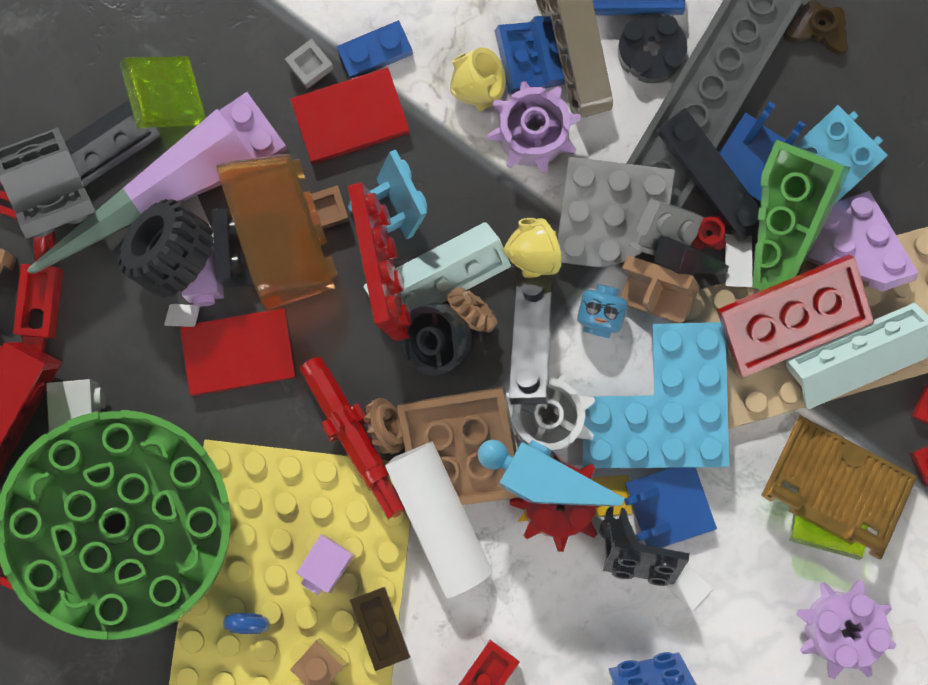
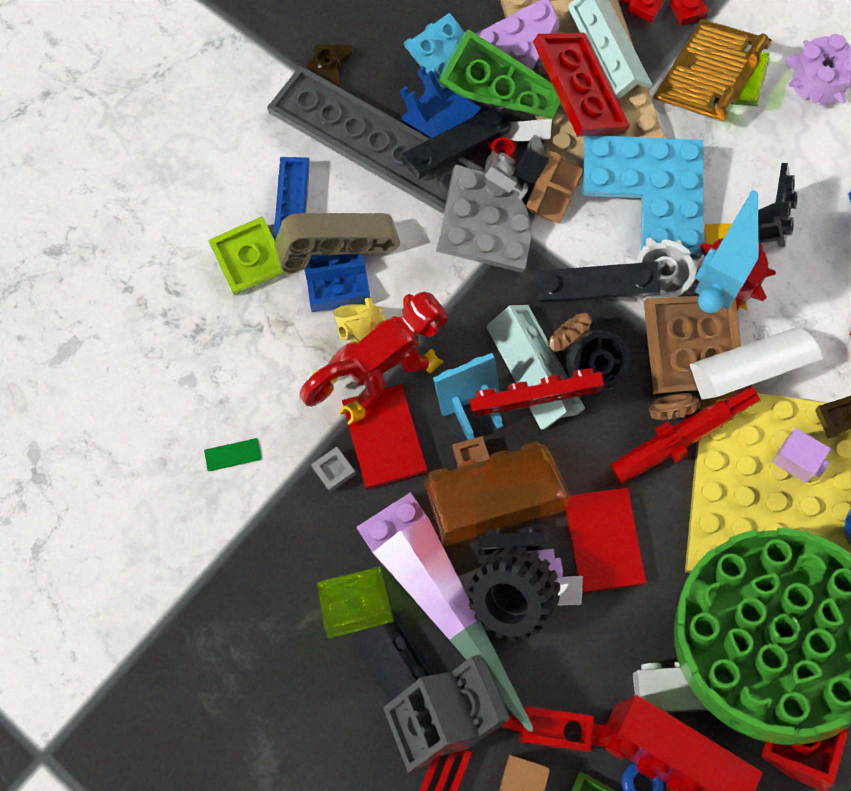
camera: 85 degrees left, 10 degrees down
(374, 50) = (326, 422): blue plate -> none
(431, 96) = (383, 348): none -> red animal
(534, 248) = (517, 277): light yellow helmet -> none
(536, 107) = (403, 260): lavender brick -> none
(602, 311) = (570, 232): dark azure head -> none
(658, 29) = (338, 171): black plate -> none
(670, 506) = (728, 188): blue plate -> none

